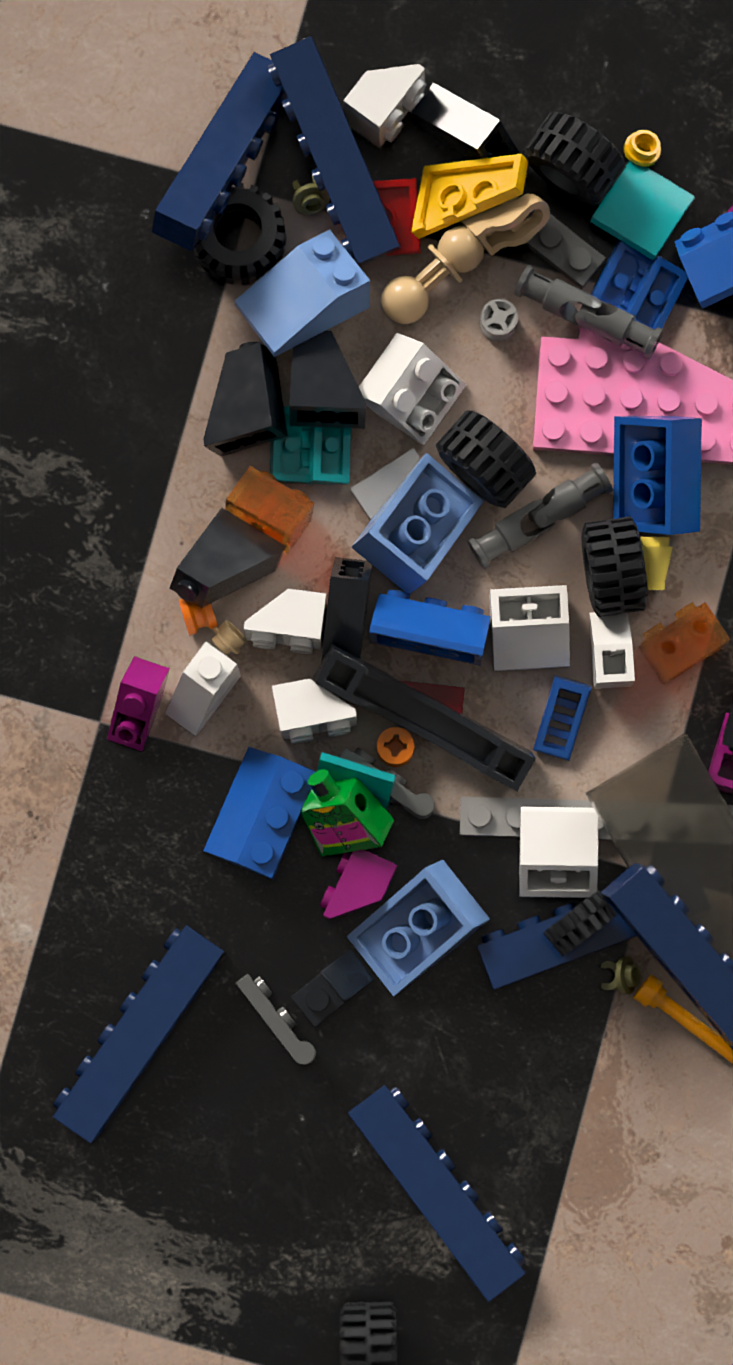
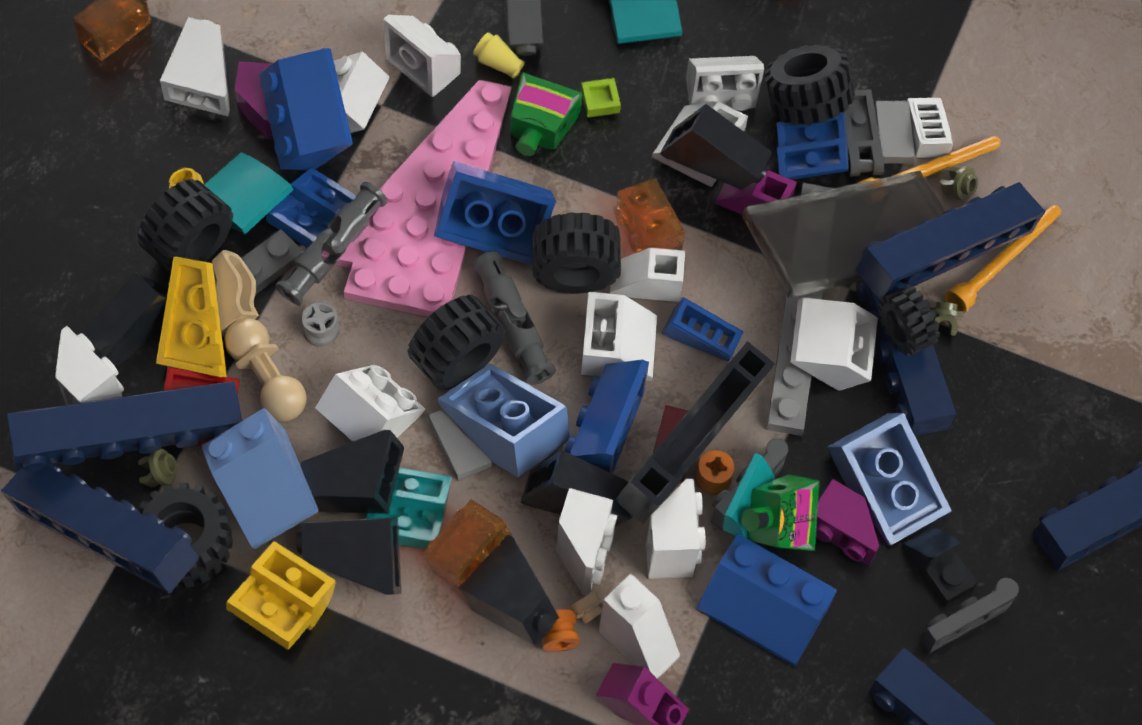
camera: 90 degrees left, 20 degrees down
(189, 340) = (282, 595): none -> yellow brick

